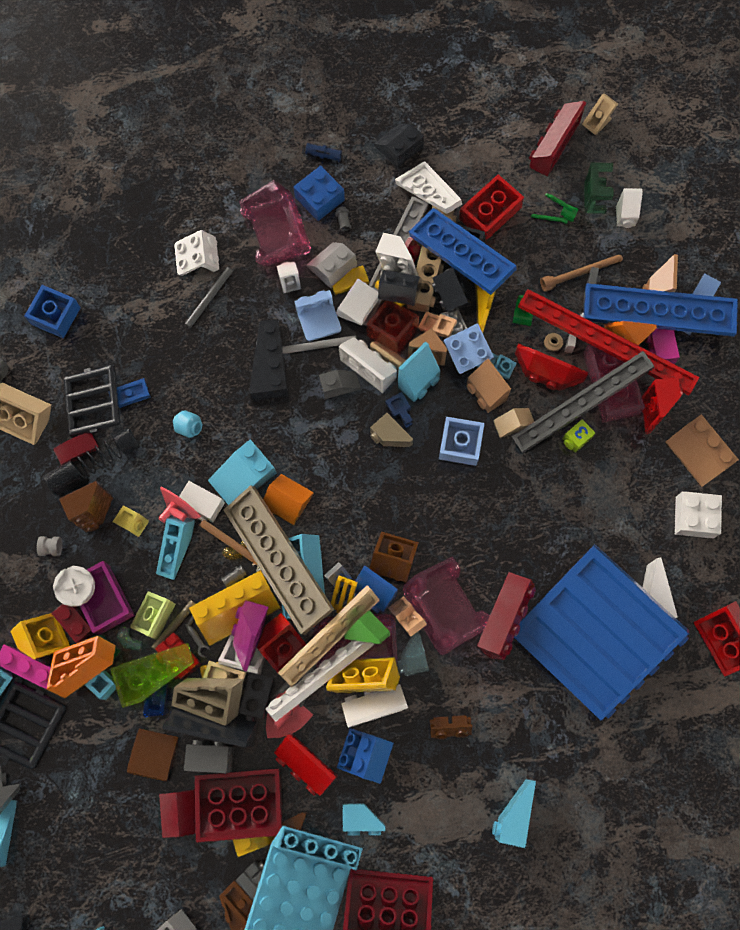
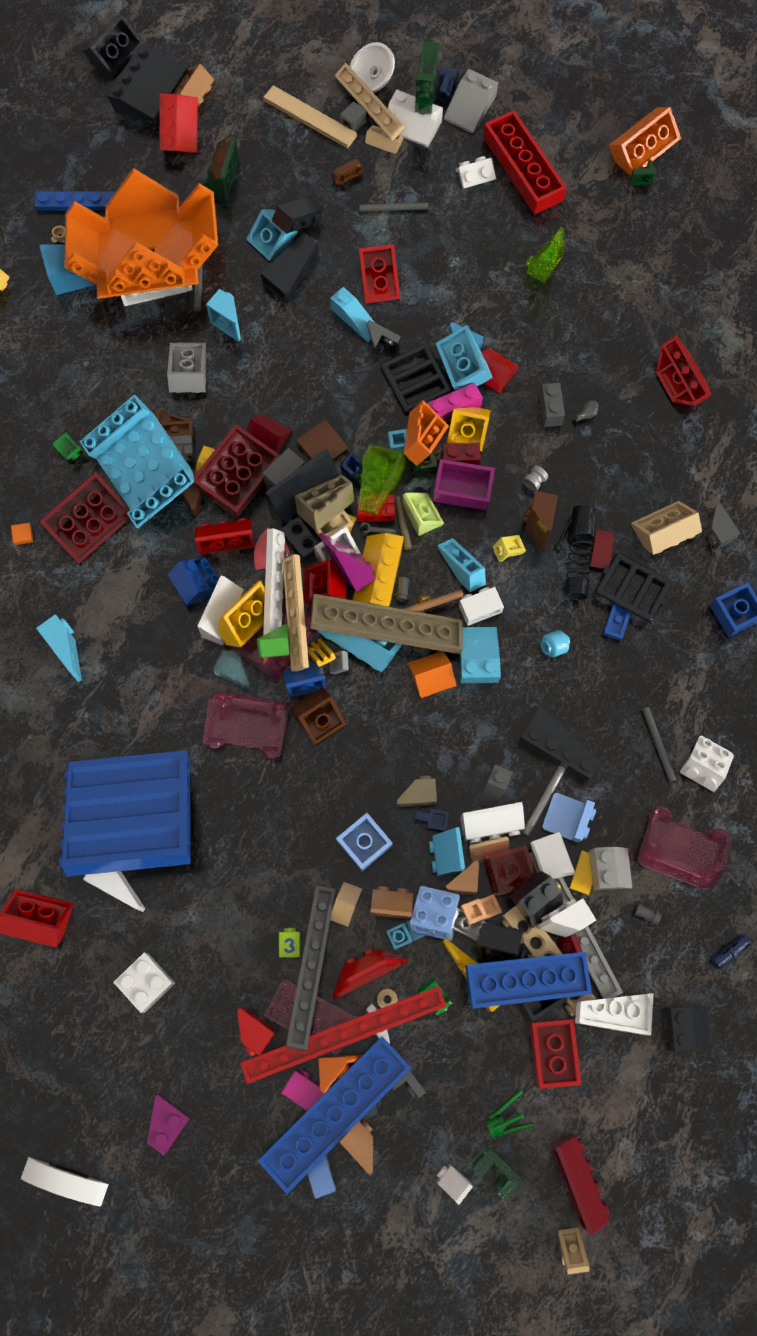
camera: 125 degrees right, 0 degrees up
(74, 586) = (485, 468): white tile -> none
(176, 507) = (489, 577): coral shield -> none
(289, 277) = (626, 821): white slope -> none
(319, 193) = (689, 911): blue brick -> none
(360, 818) = (157, 544): medium azure slope -> none
(407, 616) = (265, 687): light nougat slope -> none
(460, 727) = (166, 649): reddish brown hinge -> none
(506, 616) = (199, 754): dark red slope -> none
(547, 282) = (443, 1045): medium nougat piece -> none
(701, 450) = (190, 1037): medium nougat slope -> none

